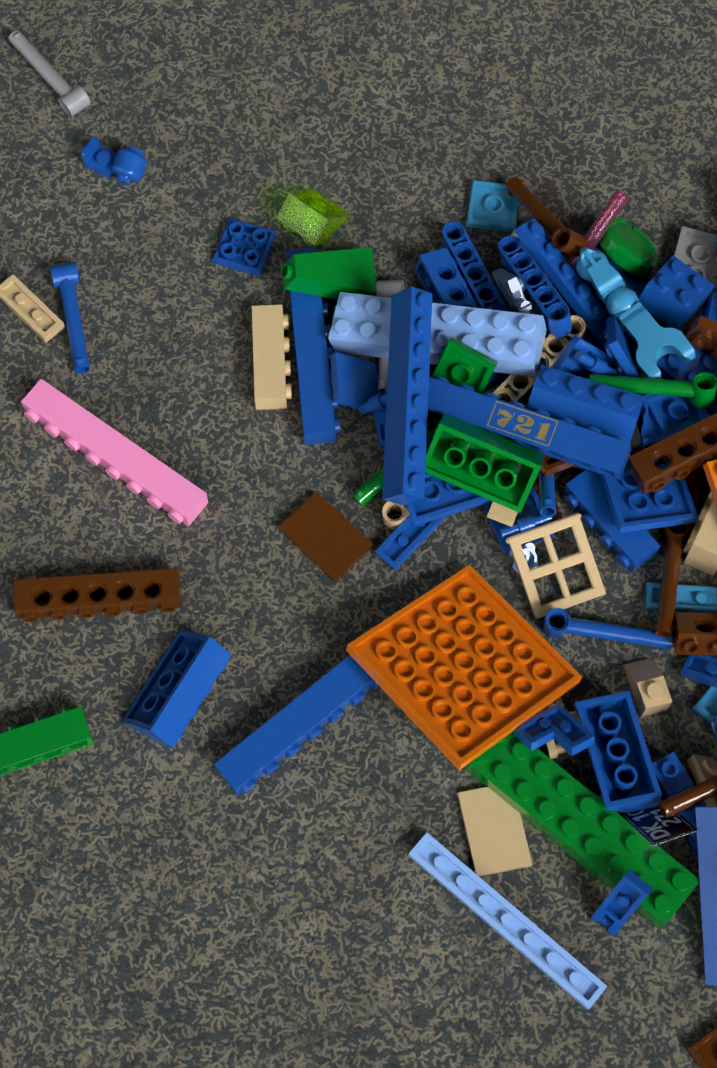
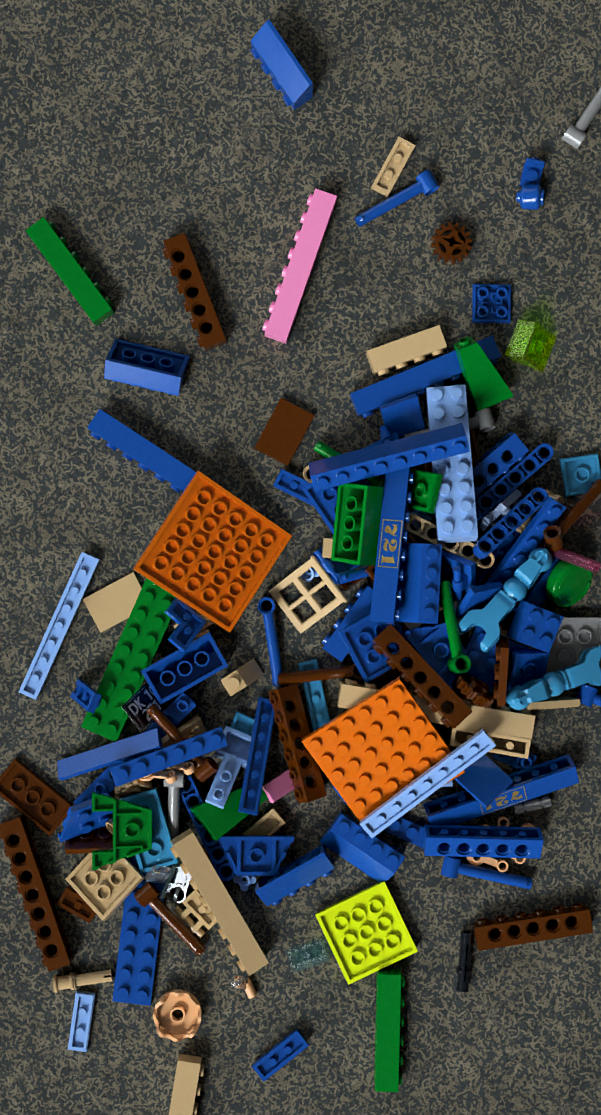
camera: 75 degrees right, 20 degrees up
(152, 268) = (443, 241): none -> reddish brown gear

